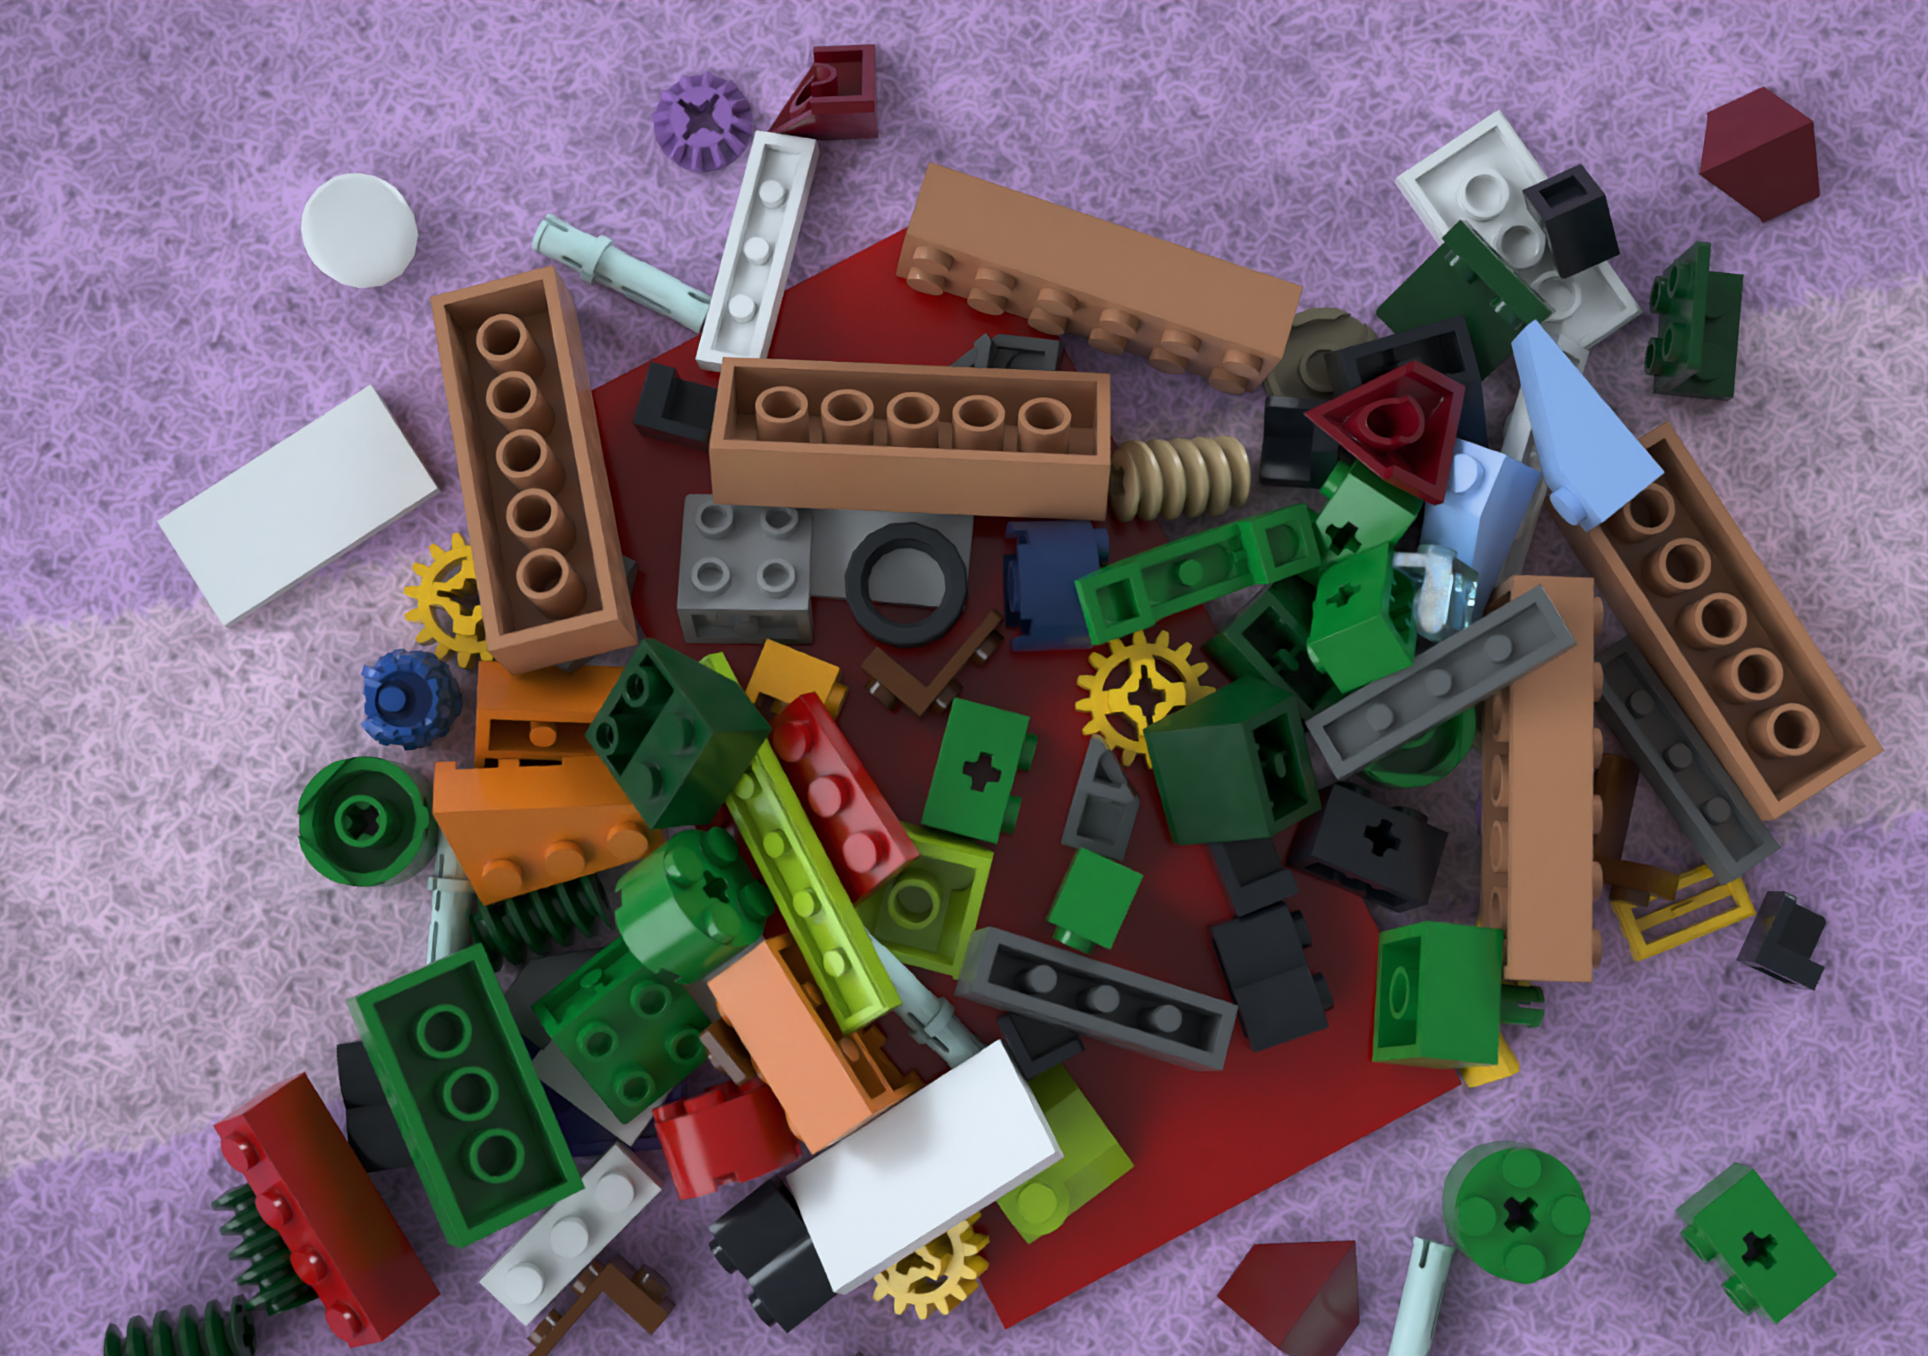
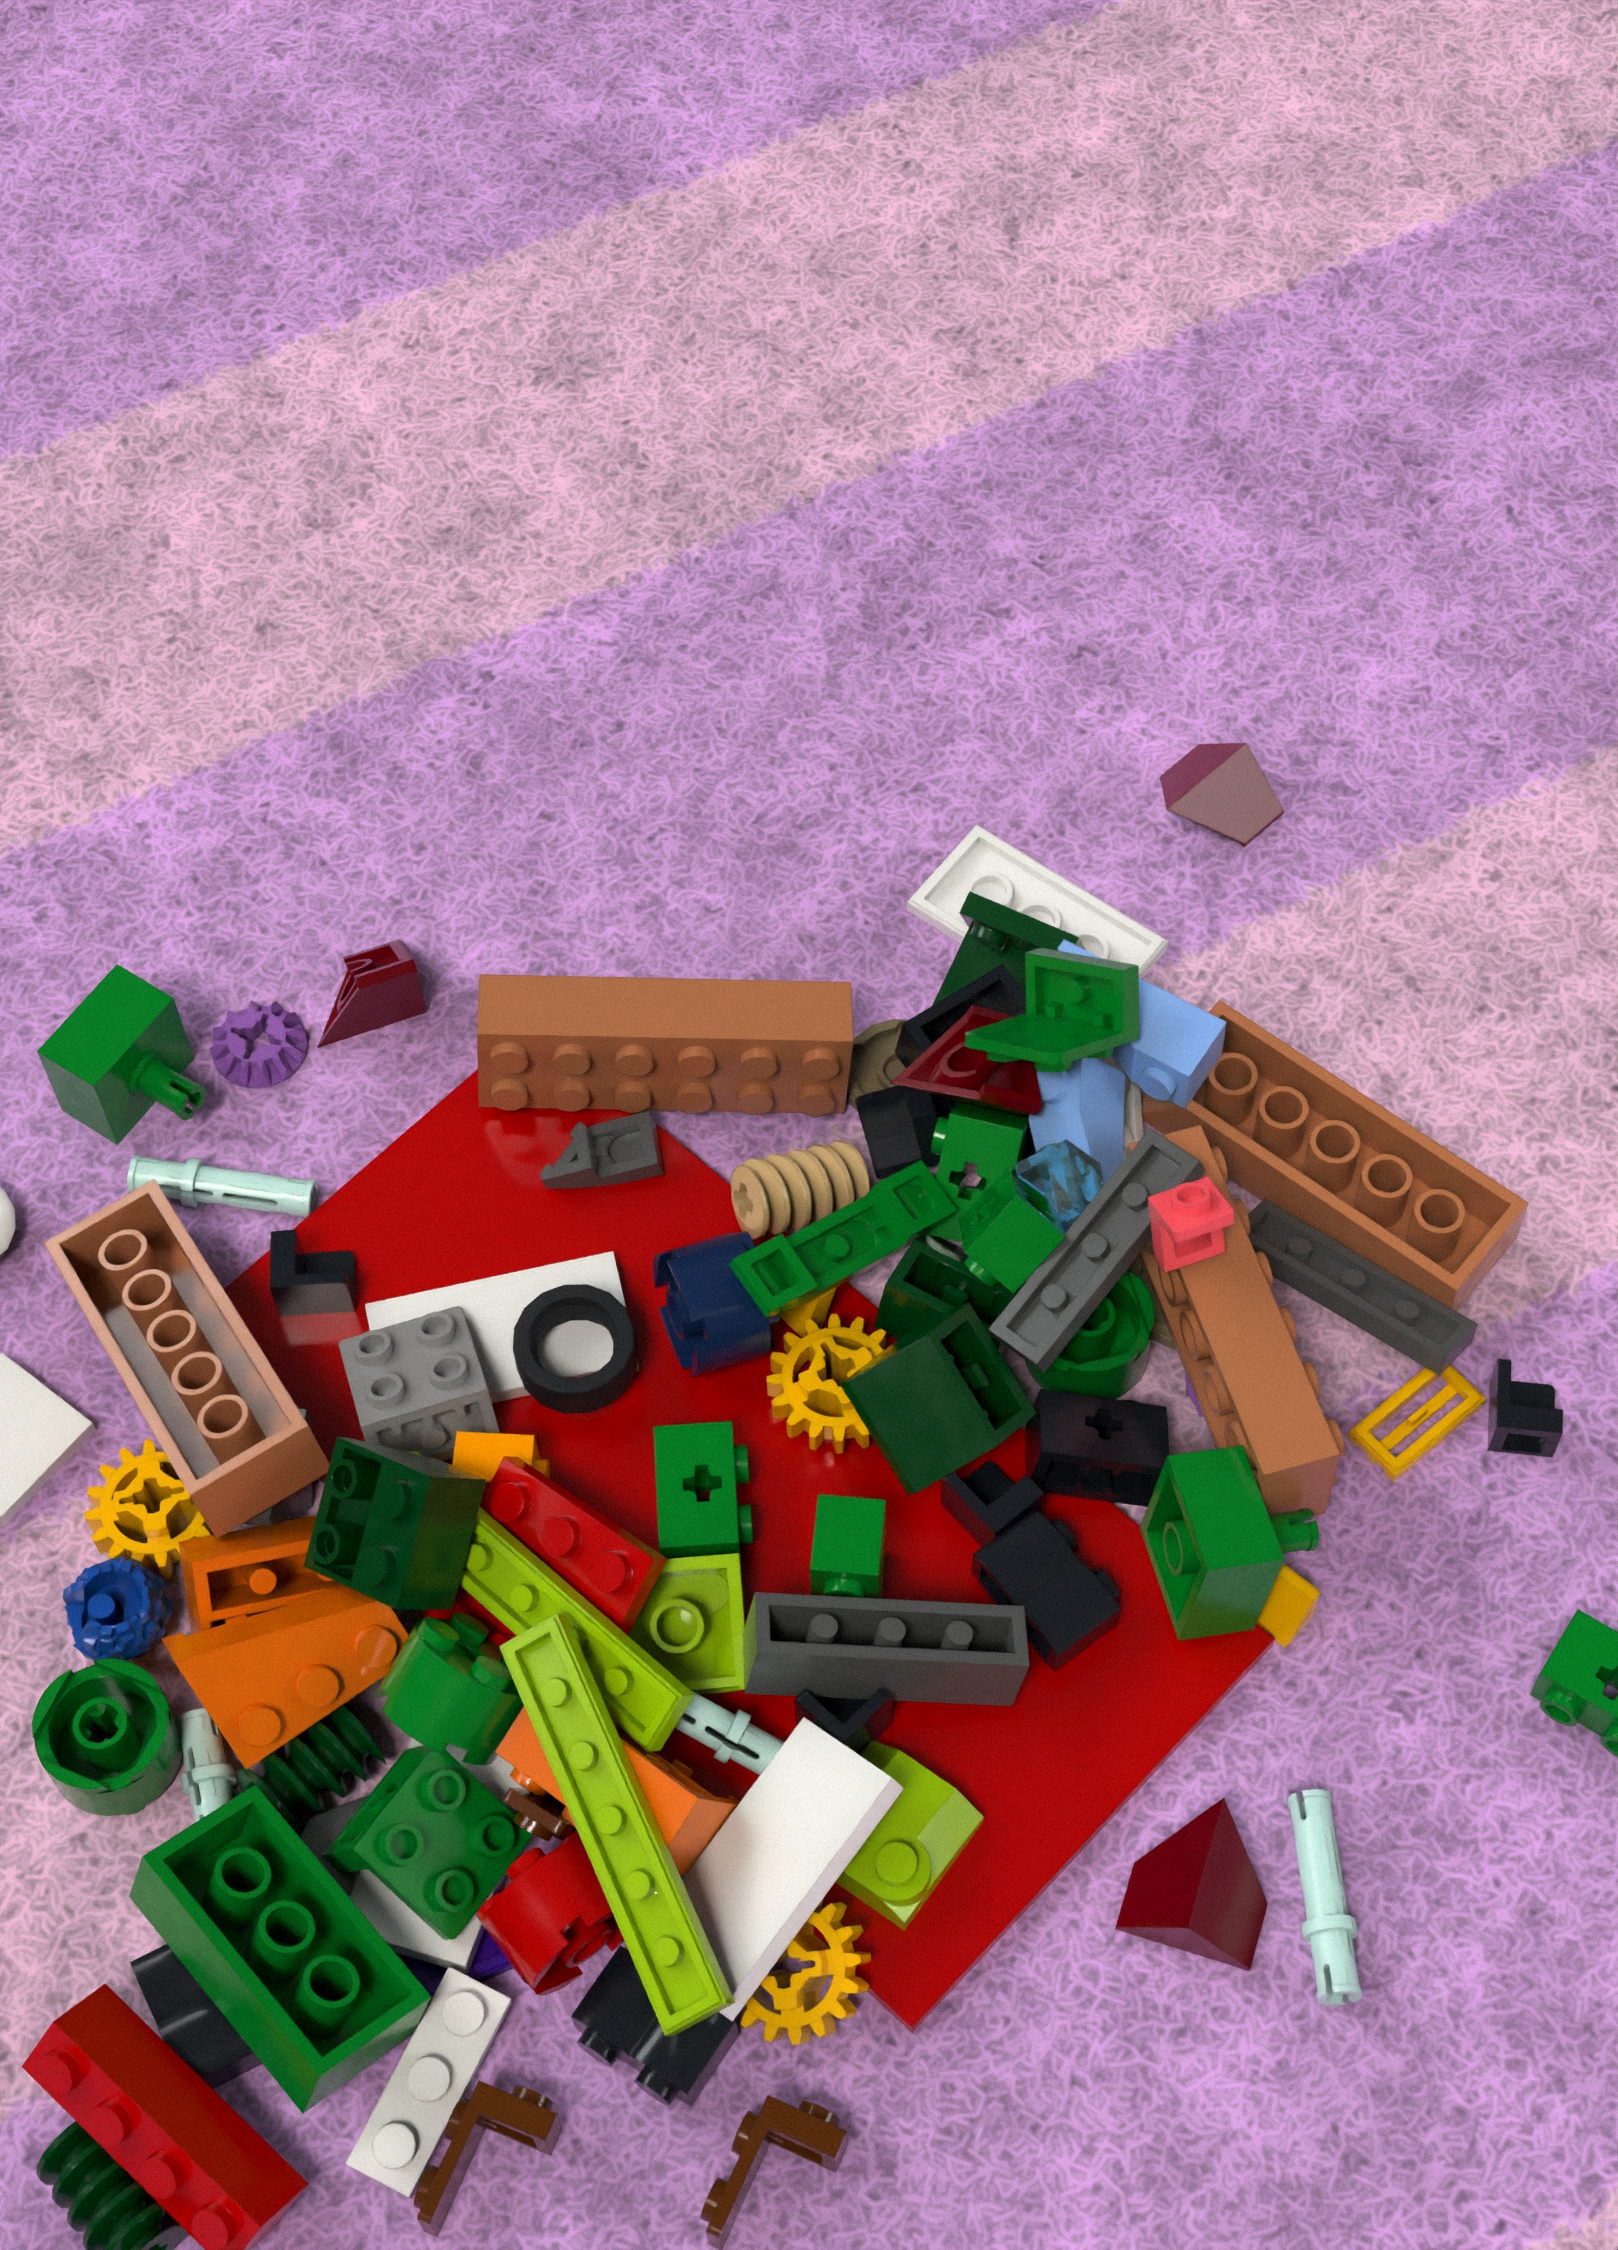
camera: 20 degrees left, 25 degrees down
(559, 107) = (121, 1057): none -> green brick
(758, 249) = (344, 1129): white plate -> none
(791, 1101) = (616, 1826): none -> lime tile
(895, 685) = (602, 1445): reddish brown bracket -> none
(911, 438) = (539, 1219): nougat brick -> none
(1102, 804) = (823, 1470): dark grey slope -> none
(1506, 423) = (1072, 1012): none -> green bracket
(1541, 705) = (1188, 1223): none -> coral bracket
(1547, 1194) = (1378, 1695): green brick -> none
(1574, 219) = (1077, 881): black panel -> none
(1628, 880) = (1346, 1395): reddish brown bracket -> none
(1695, 328) = (1219, 934): dark green bracket -> none

